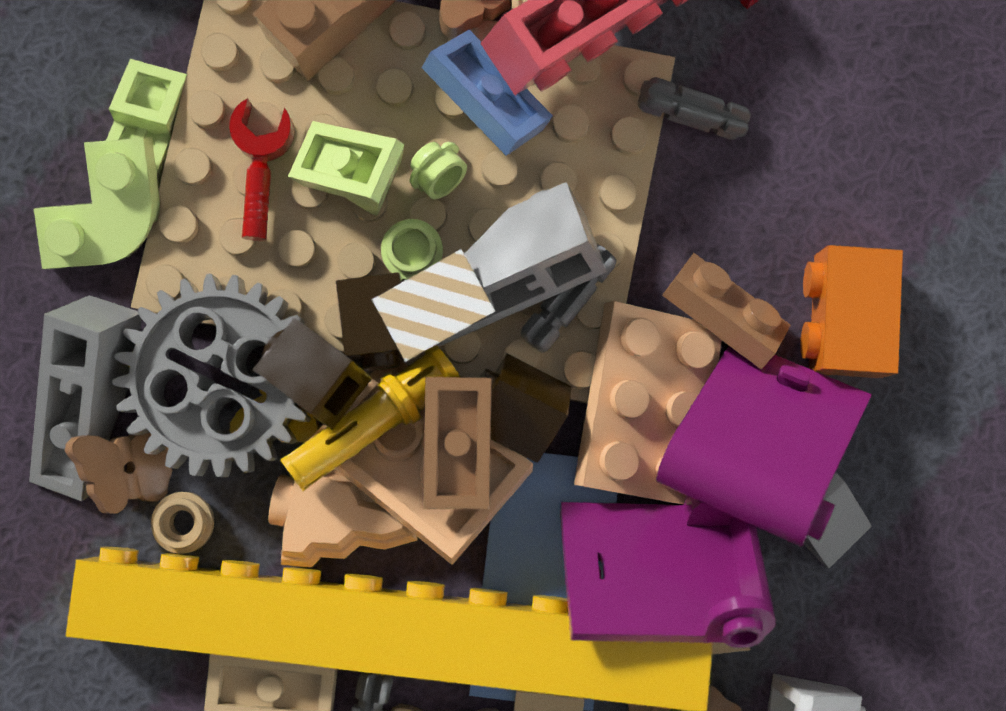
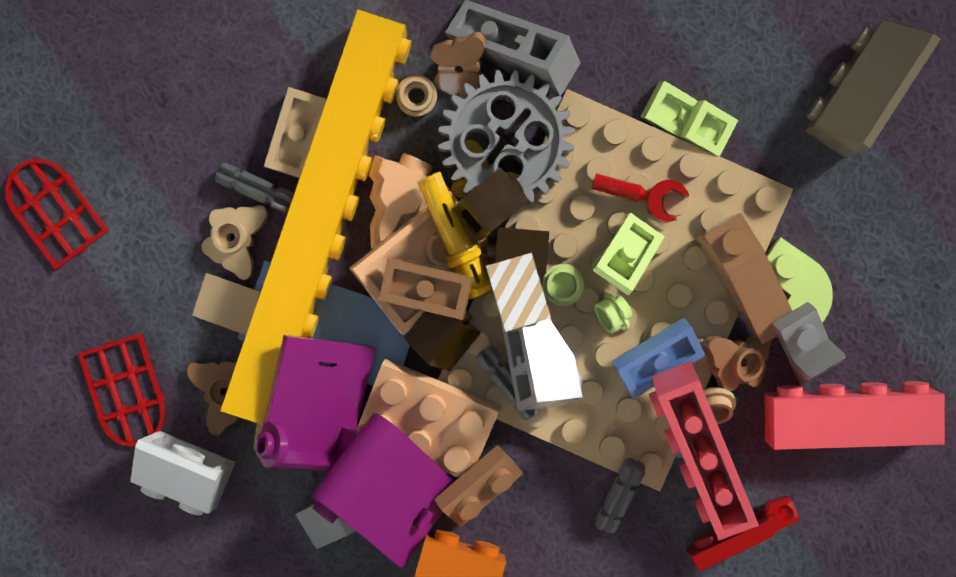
camera: 100 degrees right, 5 degrees up
(120, 212) = (629, 92): yellowish green plate -> none

